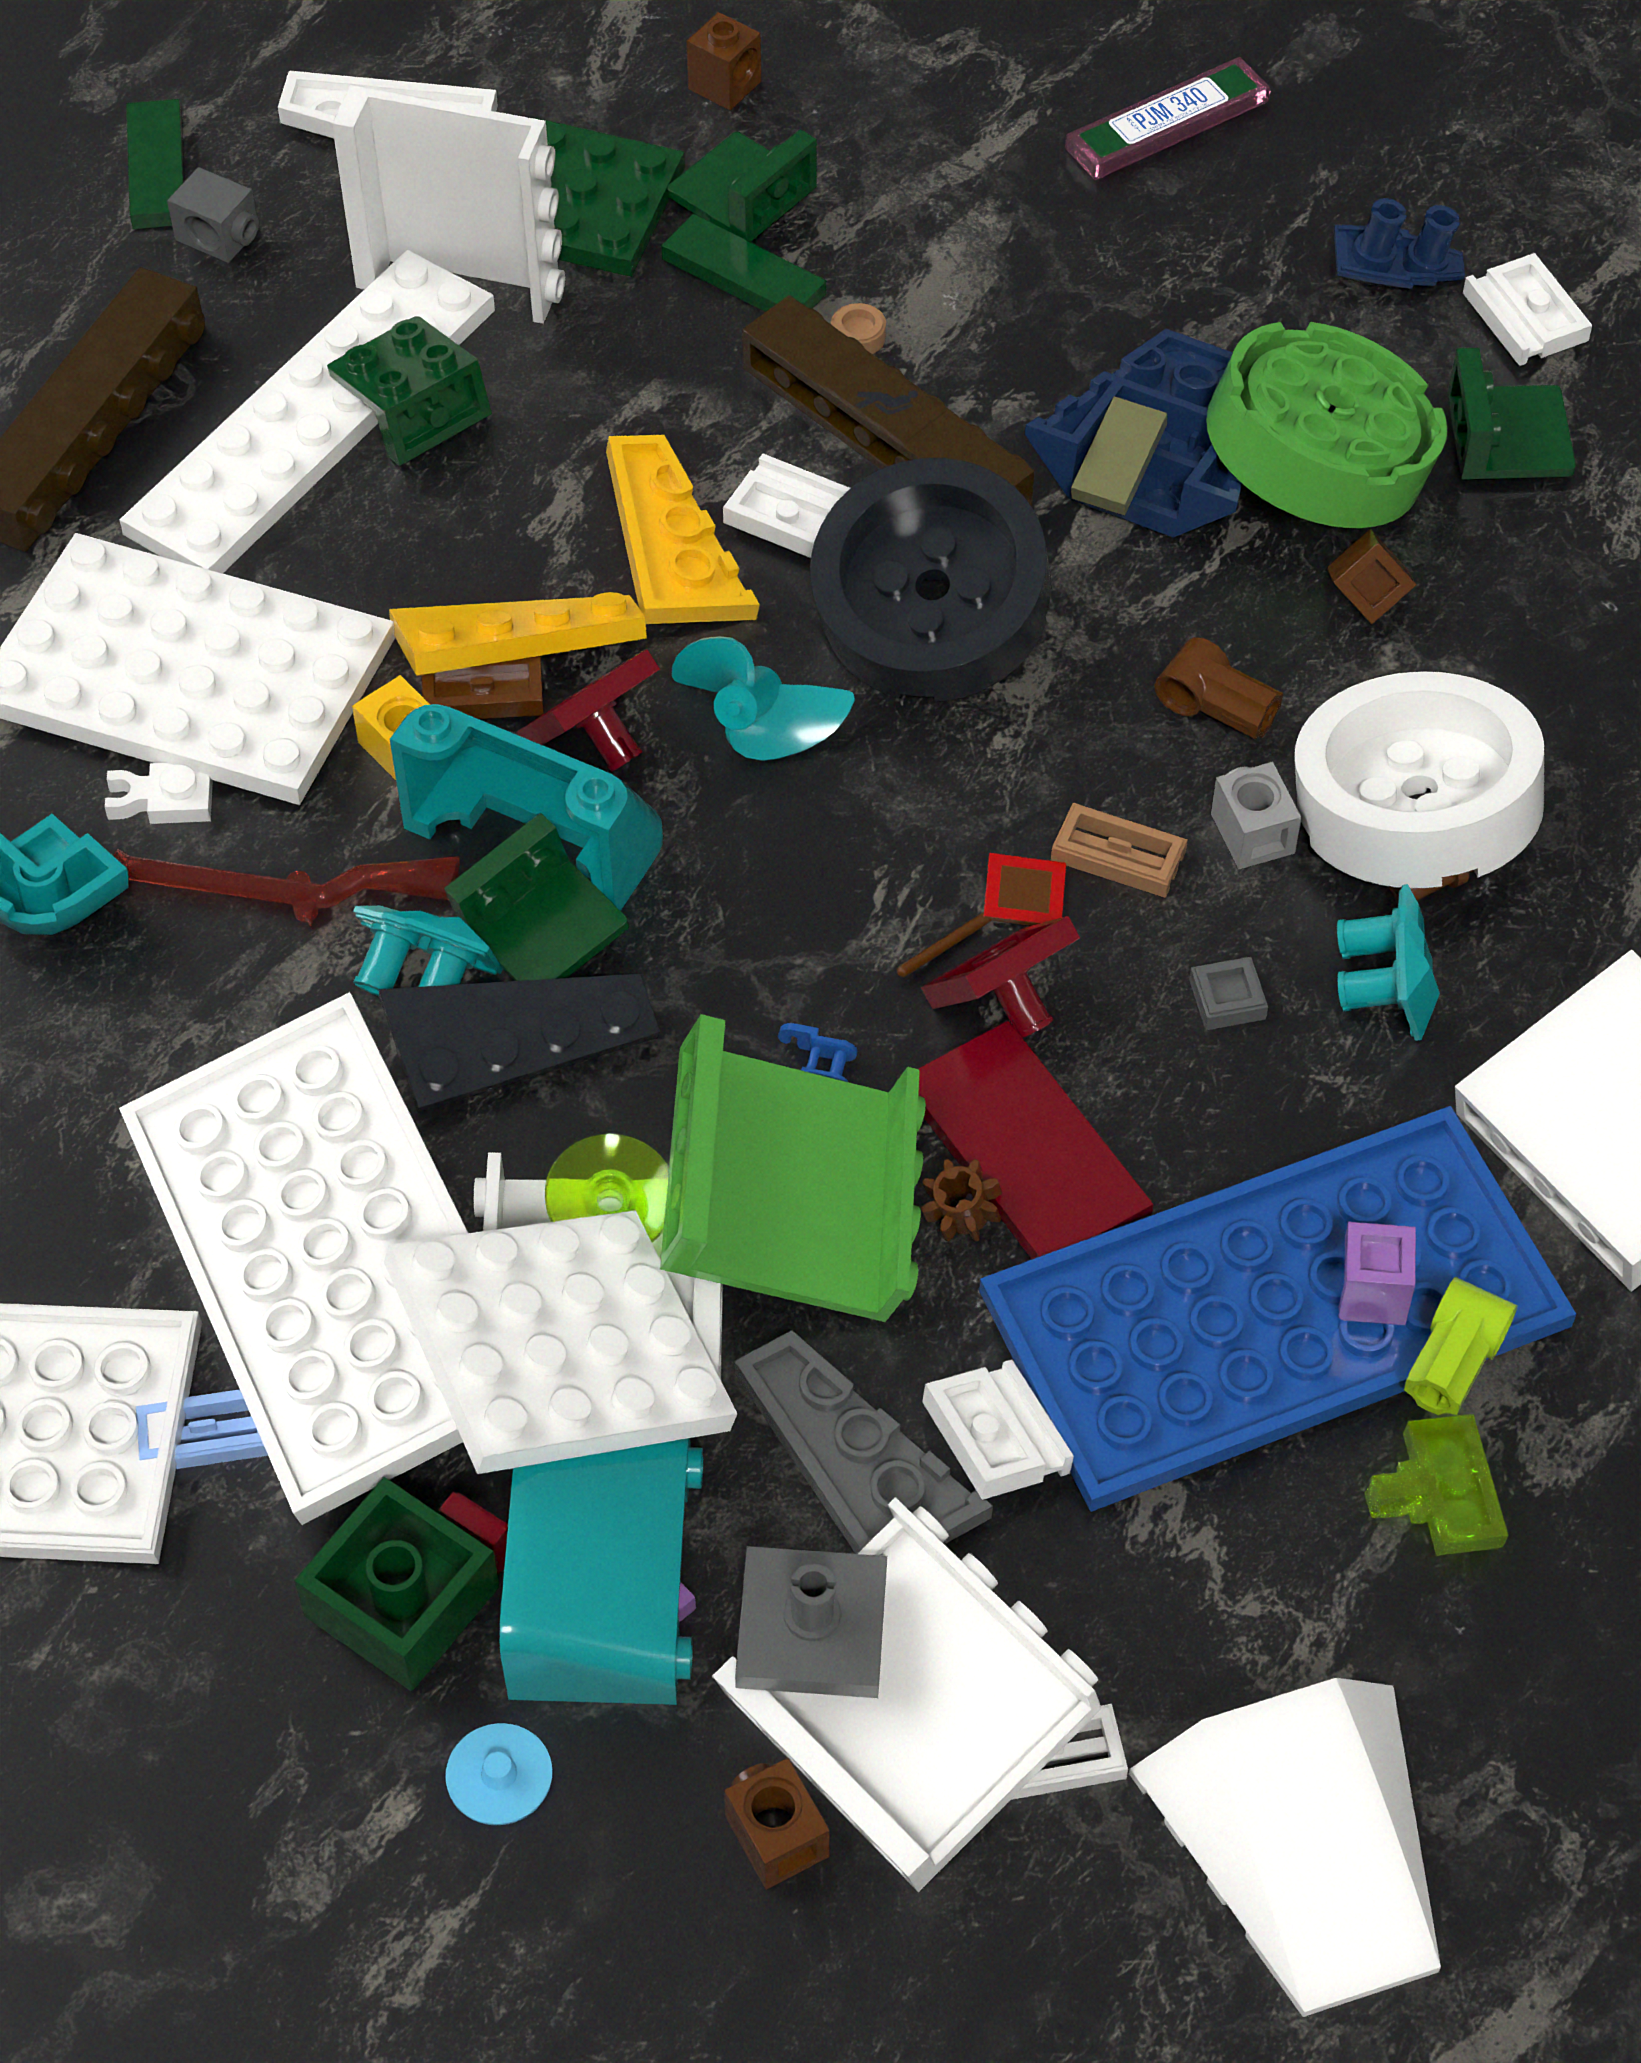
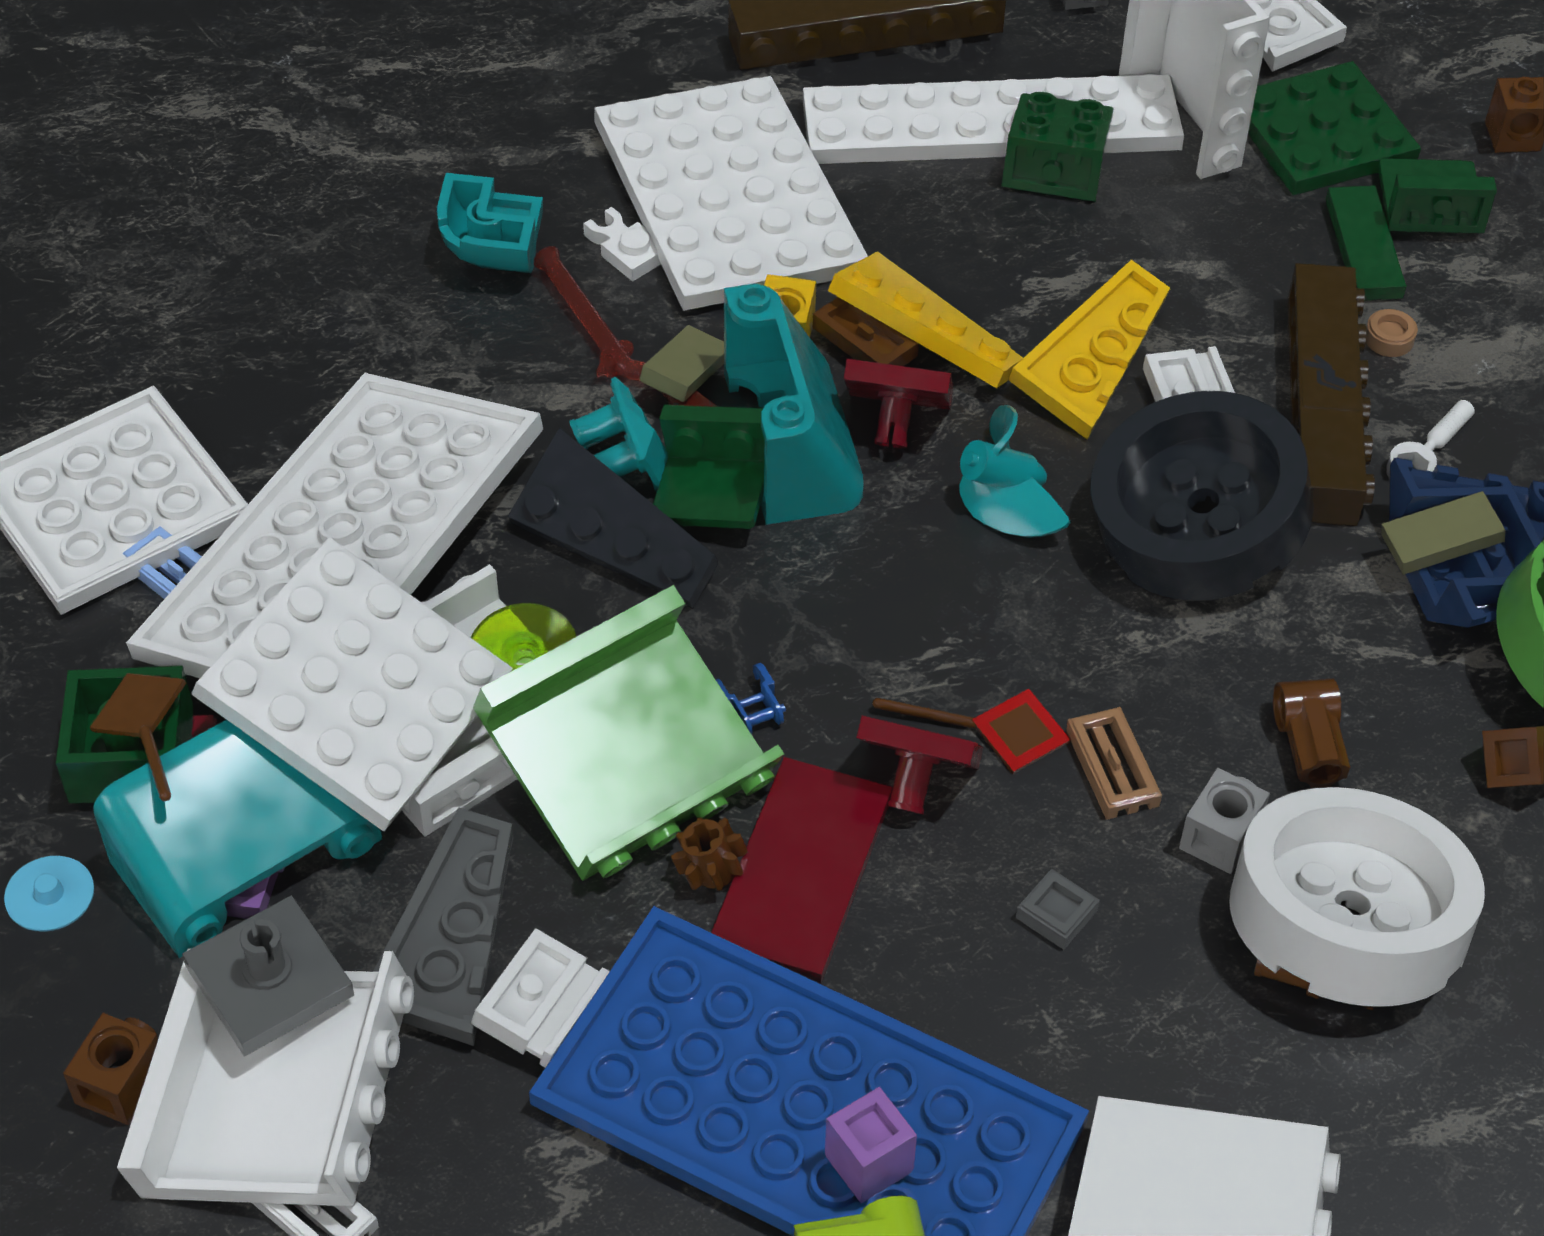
camera: 50 degrees right, 5 degrees down
(379, 844) = (684, 363): none -> olive tile
(417, 1539) = (136, 712): none -> reddish brown piece
(1006, 411) = (1423, 455): none -> white piece
(1410, 979) = (1184, 1006): teal connector -> none

